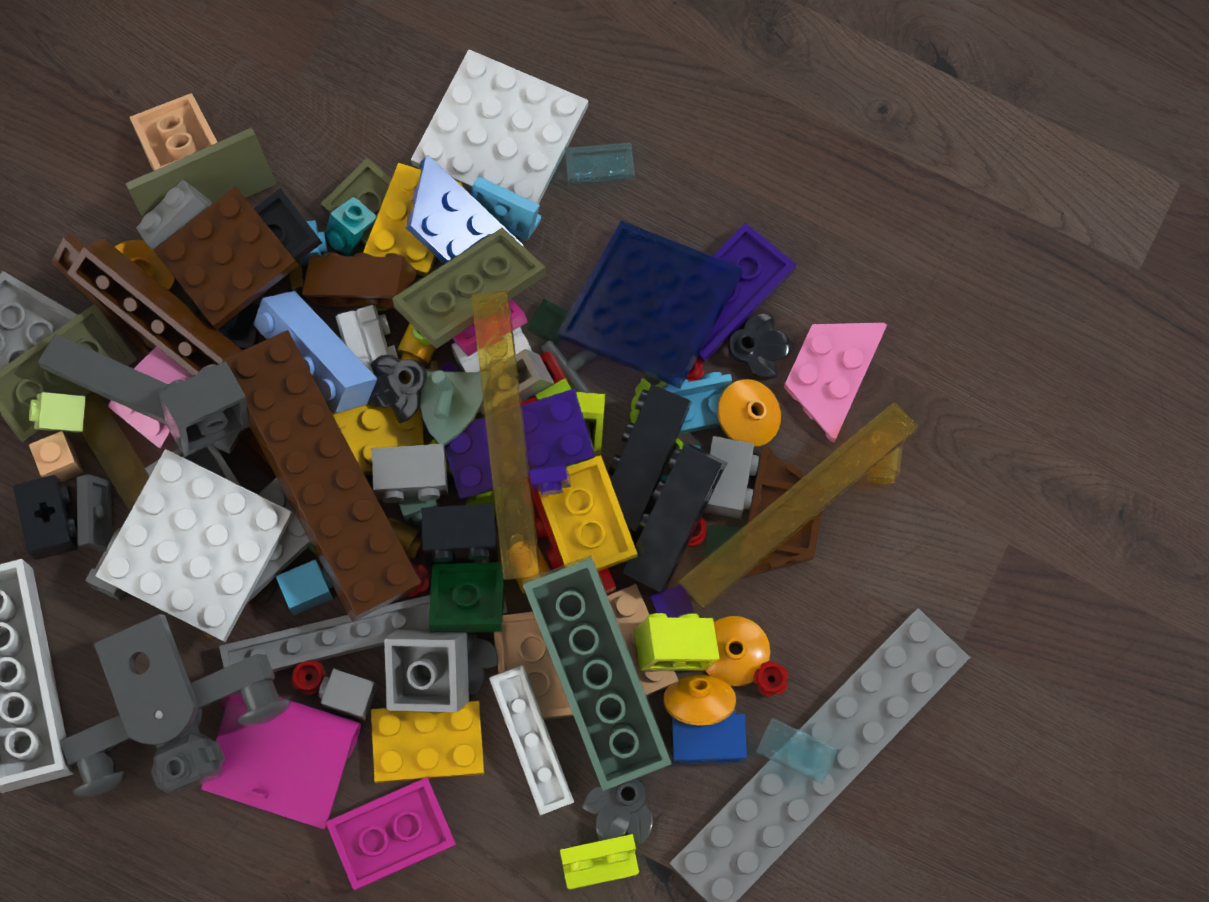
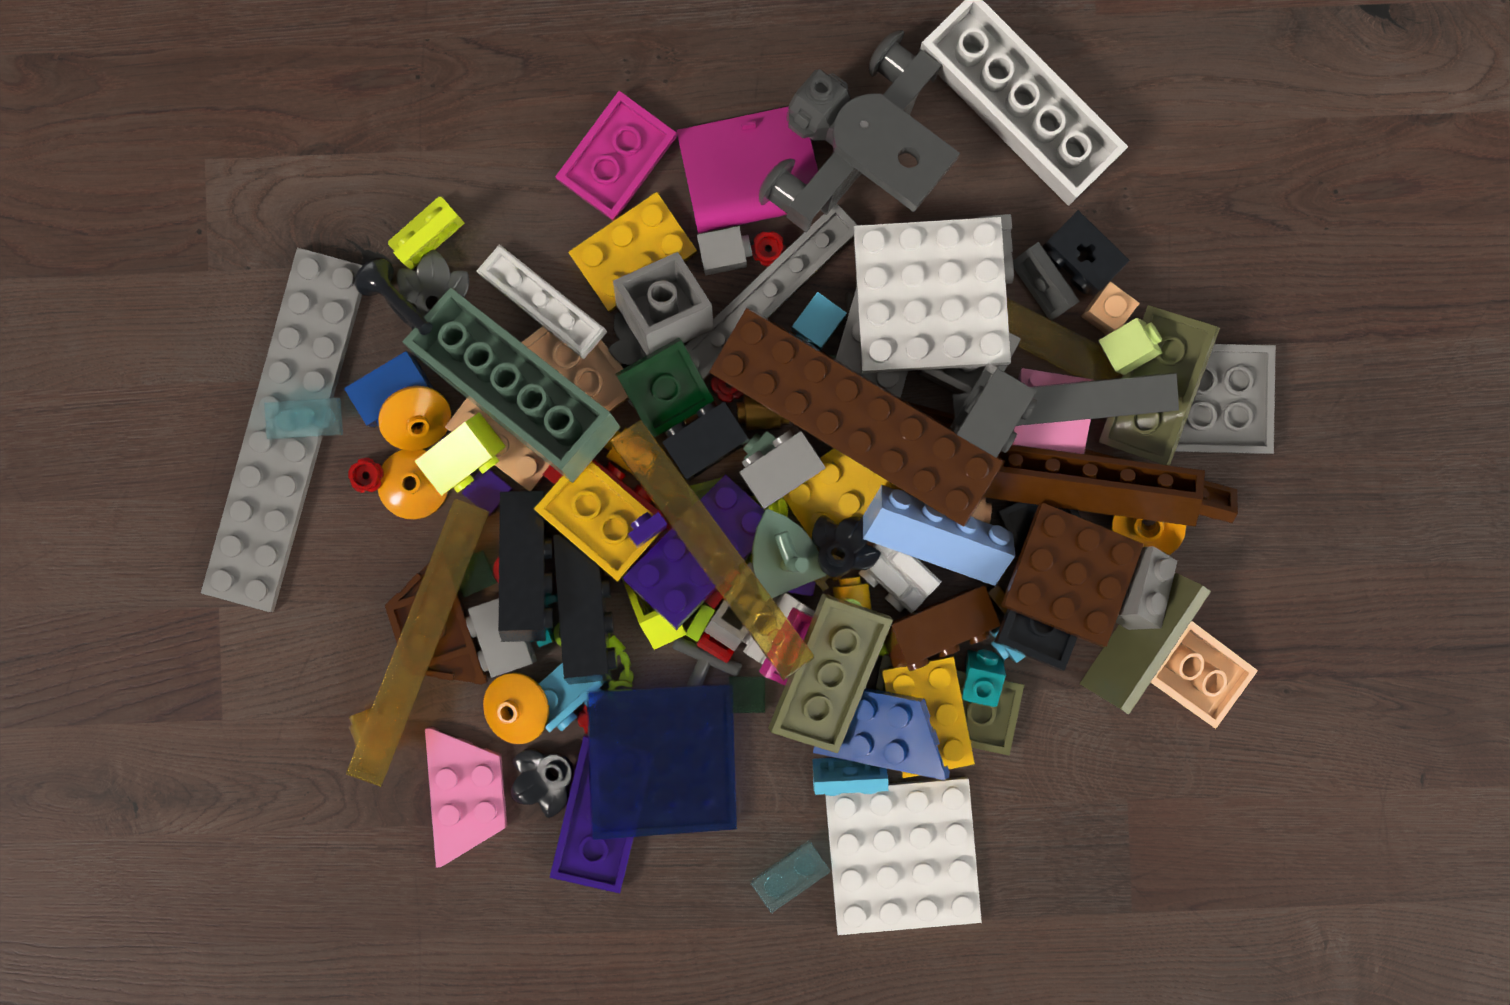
camera: 155 degrees right, 15 degrees up
(665, 841) = (376, 279): none -> black piece

